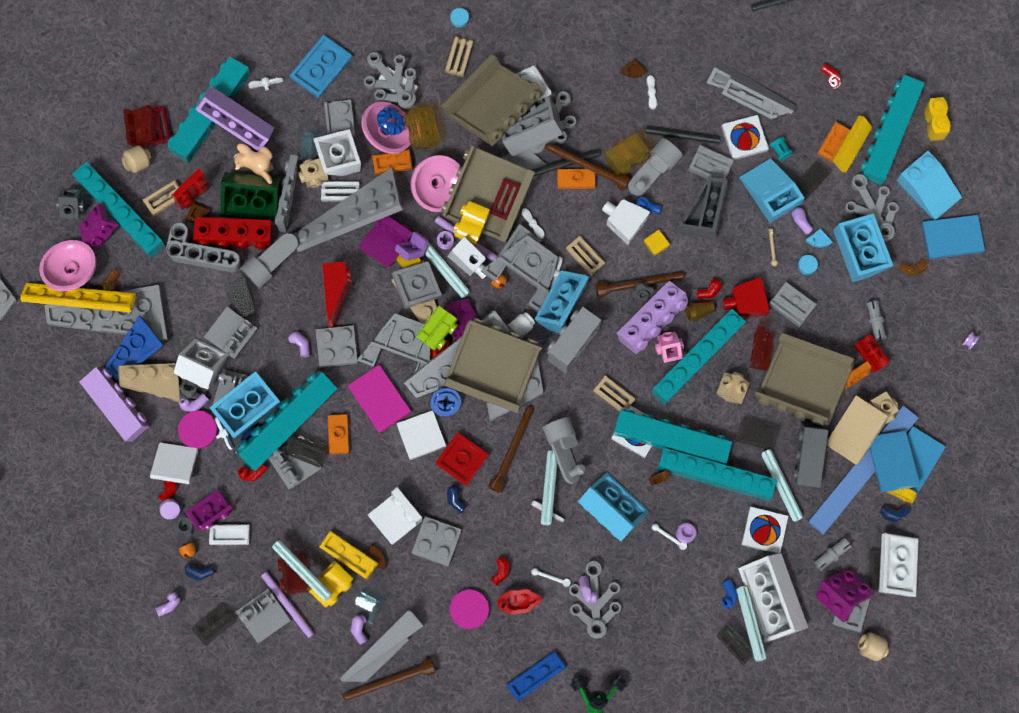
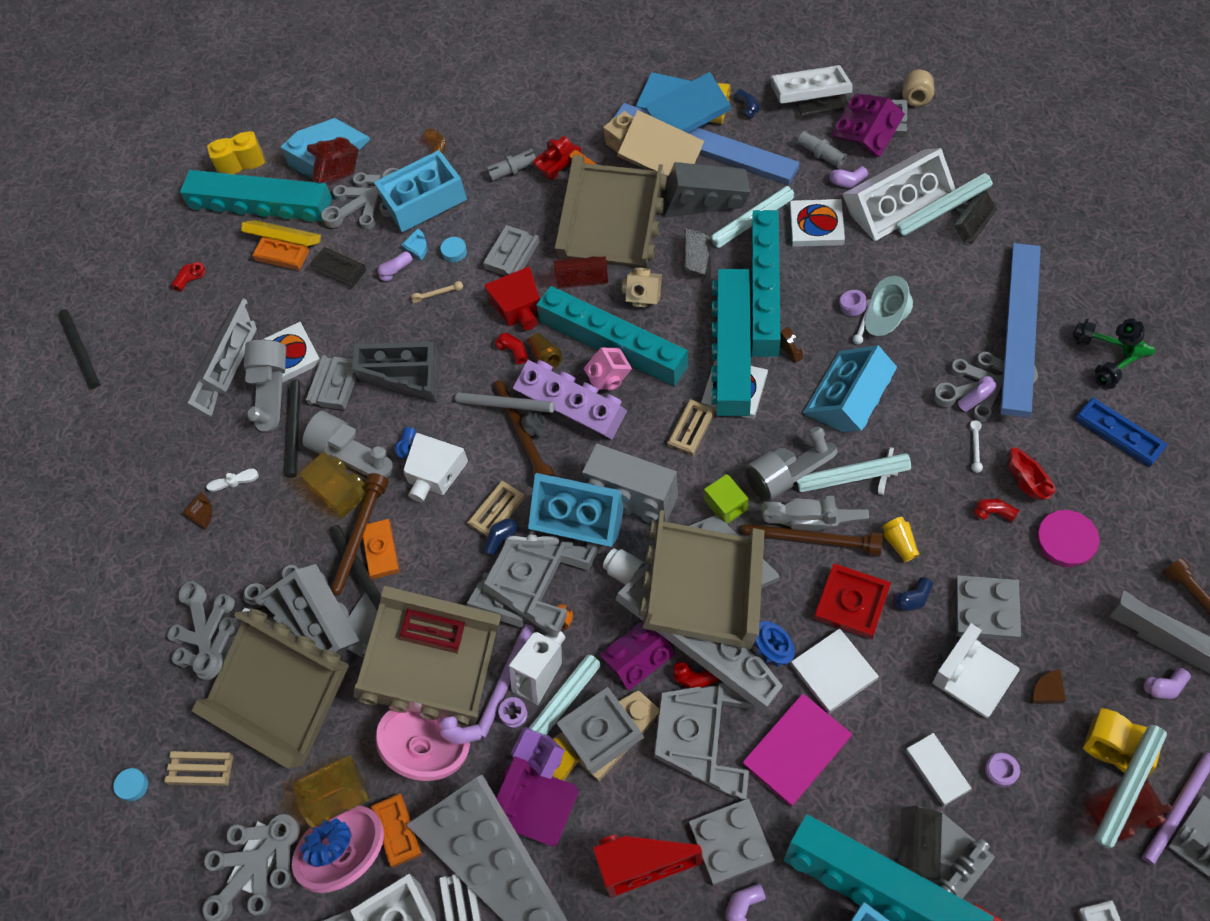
camera: 90 degrees left, 15 degrees down
(336, 512) = (1002, 769): none -> lavender tile
(338, 434) = (875, 799): orange plate -> none
(345, 475) = (938, 769): none -> white tile
(348, 555) = (1063, 729): yellow tile -> none
(369, 604) = (1126, 677): clear light blue tile -> none
(435, 204) = (459, 735): none -> lavender arm
(437, 328) = (666, 675): lime brick -> none
(472, 222) = (479, 670): yellow brick -> none
(495, 503) = (900, 537): none -> yellow cone
(519, 65) = (209, 660): none -> light grey plant
(527, 451) = (811, 514): none -> light grey animal
(532, 223) = (469, 583): white piece -> none
(551, 400) = (726, 499): none -> lime panel
(566, 254) = (498, 533): none -> dark blue arm
(631, 638) = (1021, 331): none -> medium blue tile
(656, 243) = (458, 424): yellow tile -> none
(661, 274) = (505, 402): none -> light grey bar
(672, 553) = (888, 306): none -> light aqua piece
(725, 119) = (265, 367): none -> light grey piece
(731, 594) = (914, 238): blue arm -> none
(772, 190) = (359, 301): medium azure slope -> none
(780, 142) = (298, 306): teal bush -> none
(799, 564) = (848, 179): none -> lavender arm
(907, 187) = (333, 159): none -> clear red bracket
(953, 237) = (387, 116): dark azure tile -> none
(970, 340) = (514, 73): lavender bush -> none

